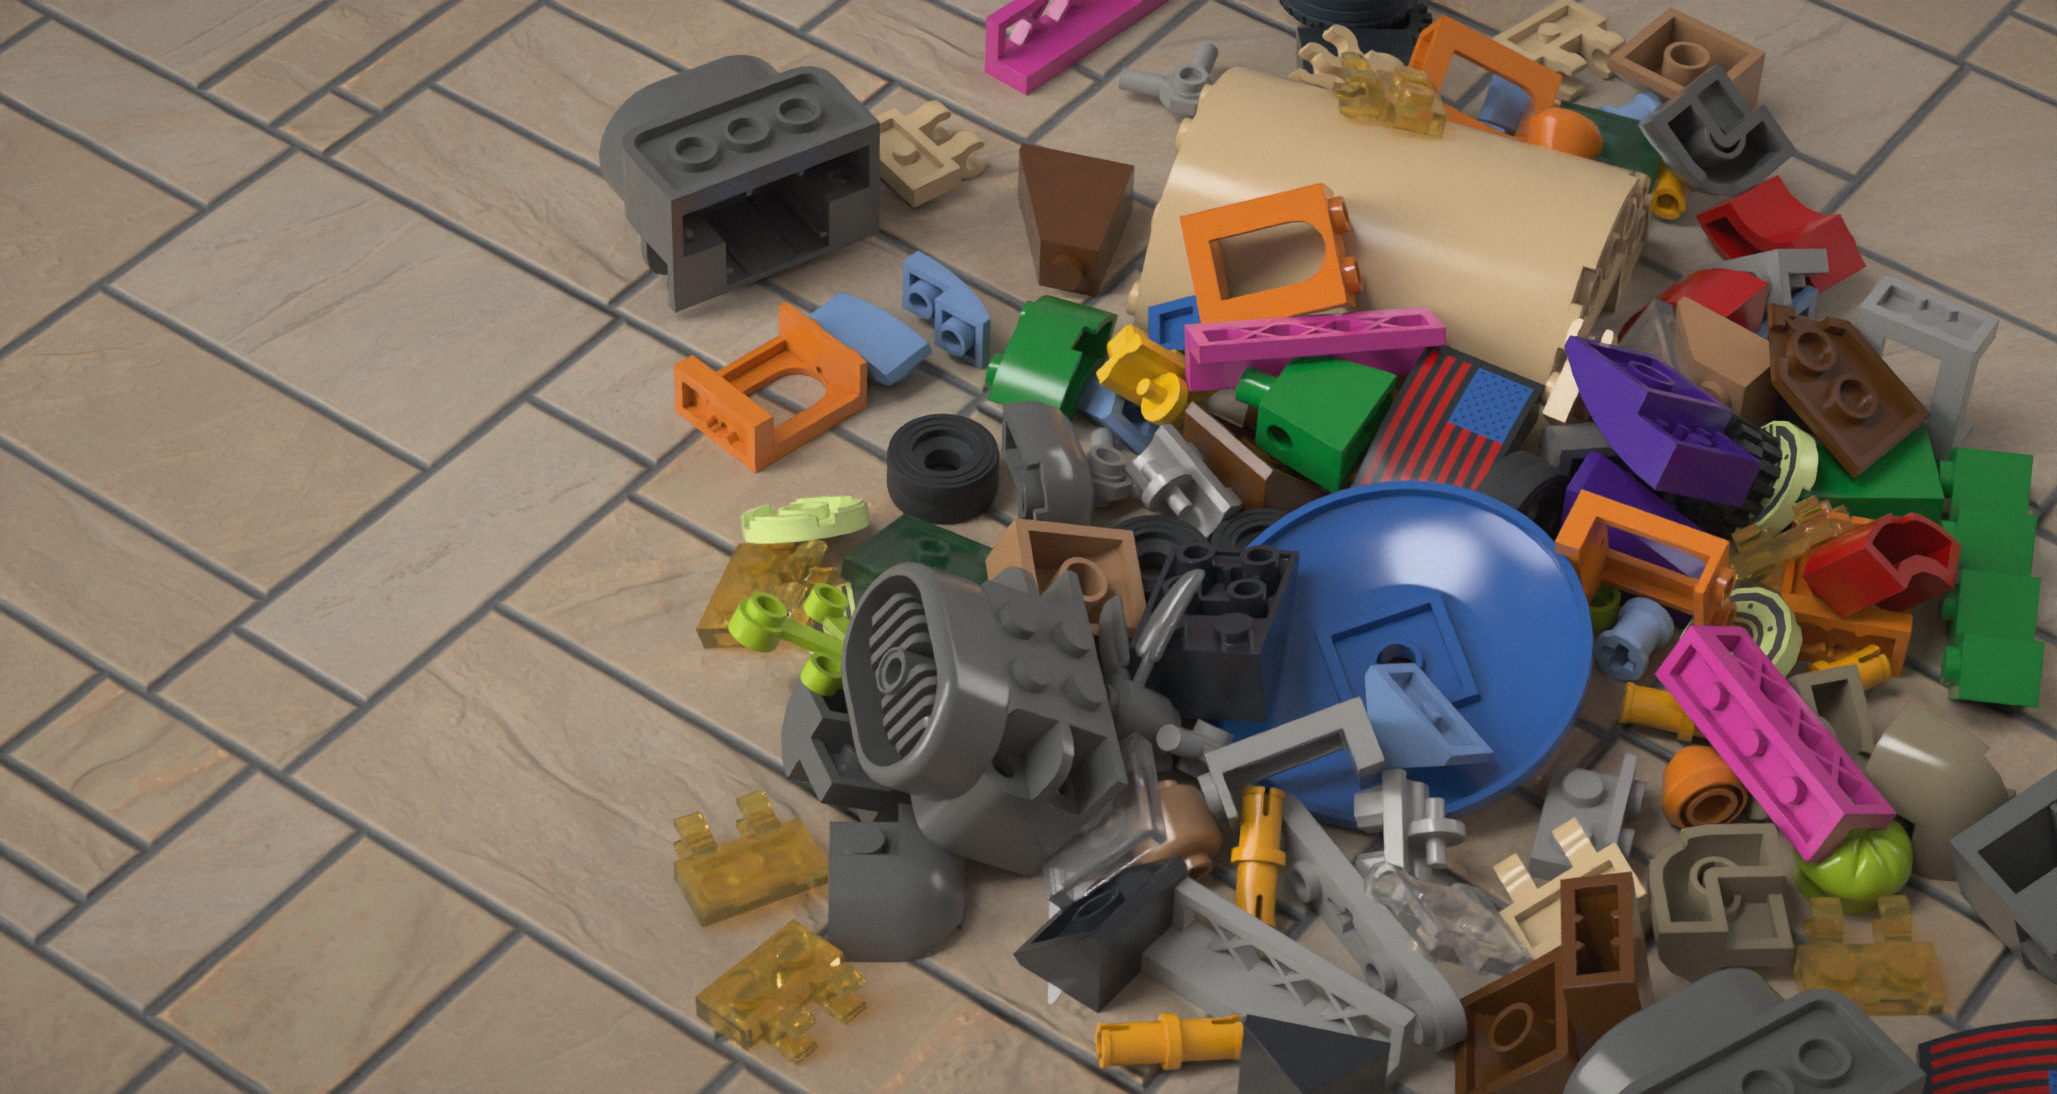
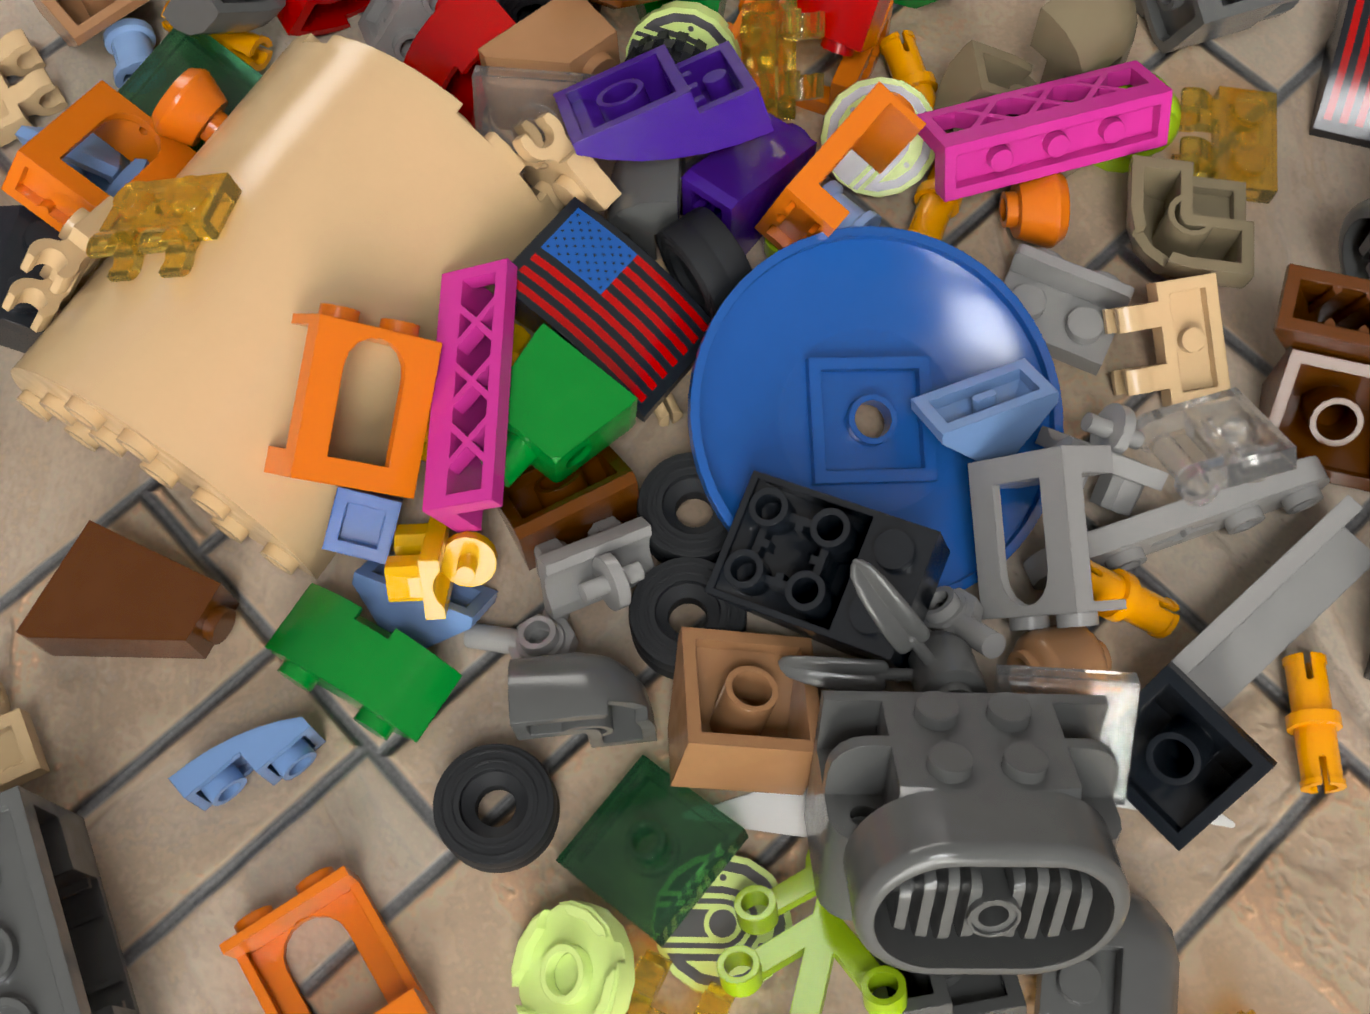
camera: 75 degrees left, 25 degrees up
(876, 335) = (271, 860): medium blue slope -> none

